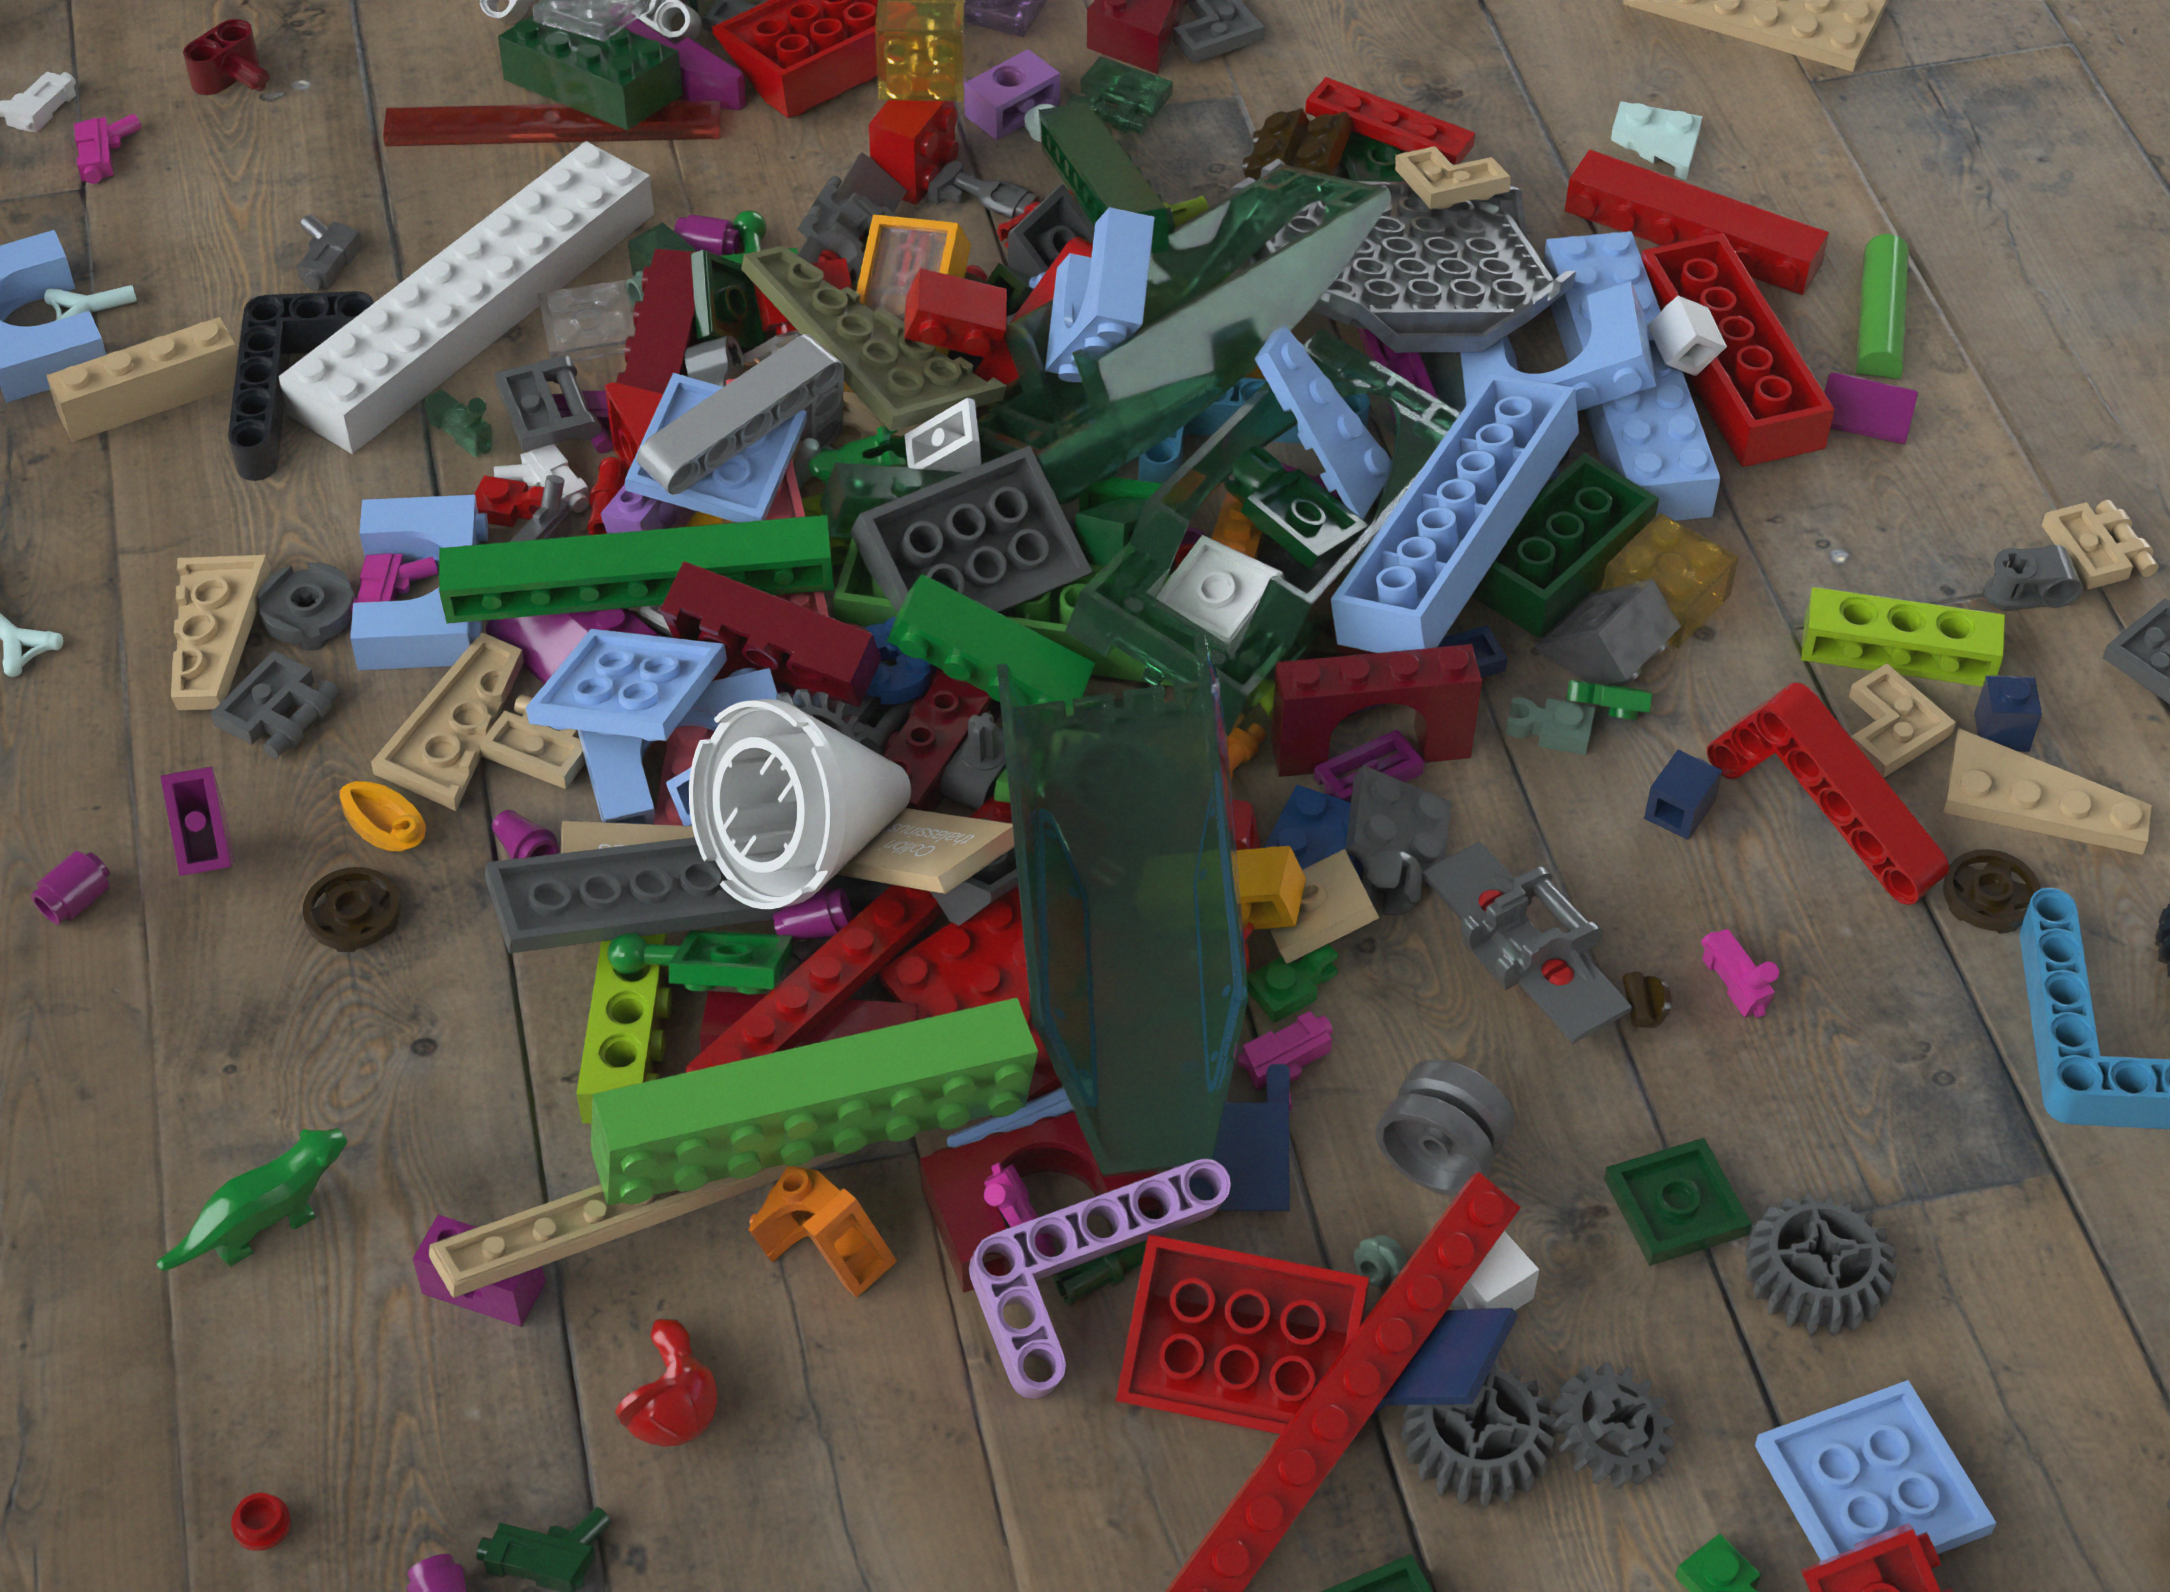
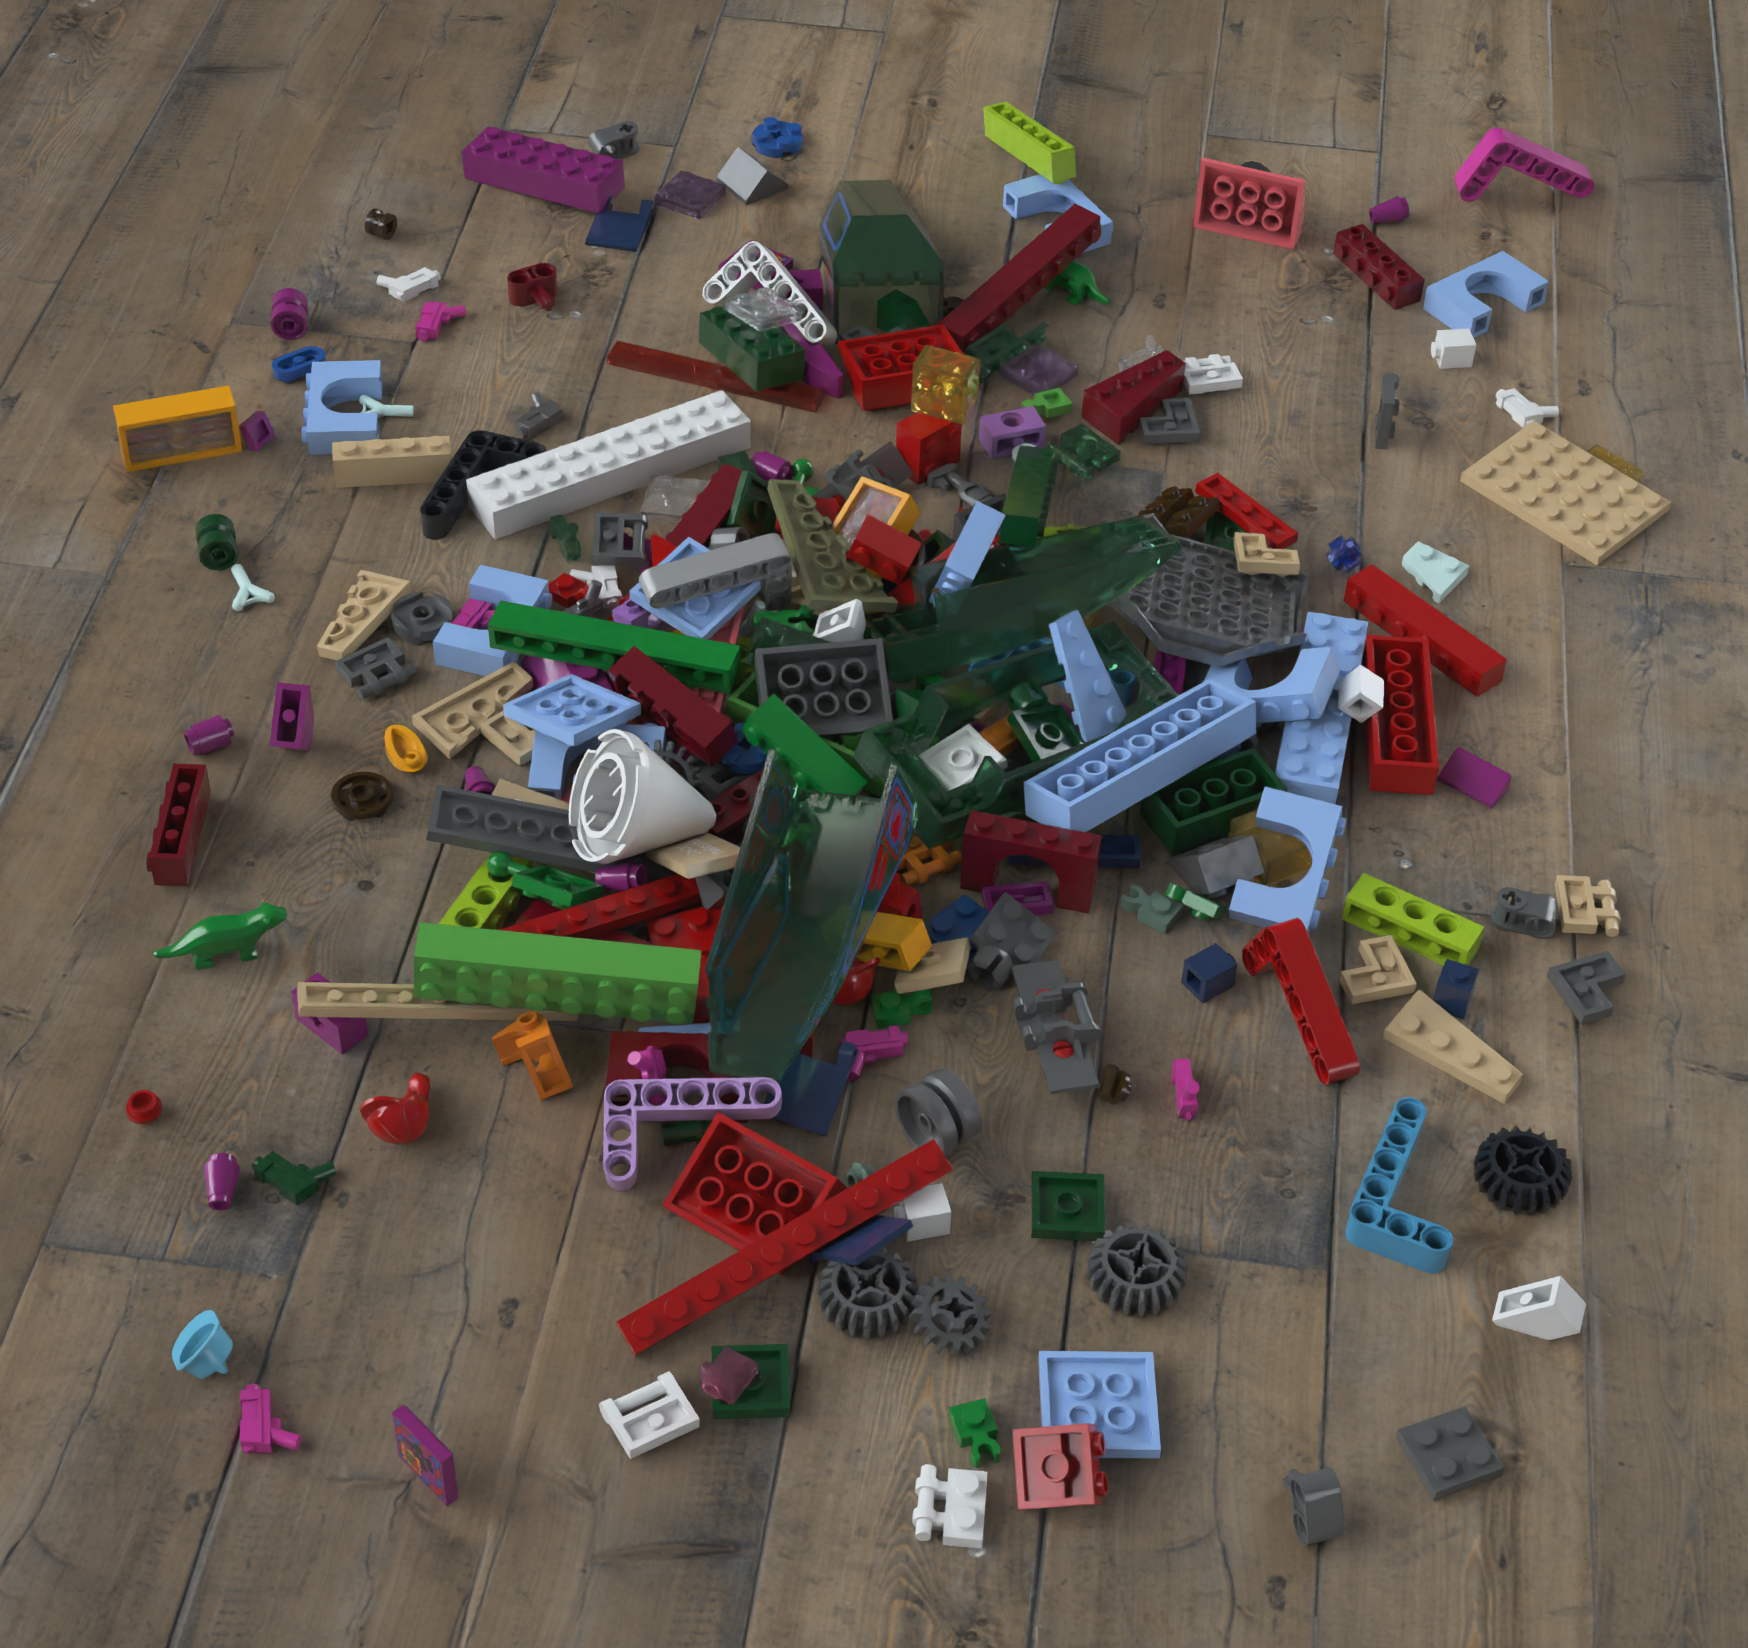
camera: 20 degrees right, 5 degrees down
(100, 1047) = (179, 825): none -> dark red brick
(1042, 37) = (1050, 403): none -> bright green plate
(1540, 145) = (1344, 553): none -> clear blue gear
(1741, 544) = (1316, 826): none -> light blue arch
(1883, 307) = (1525, 718): bright green brick -> none
(1989, 894) = (1381, 1093): dark brown wheel -> none

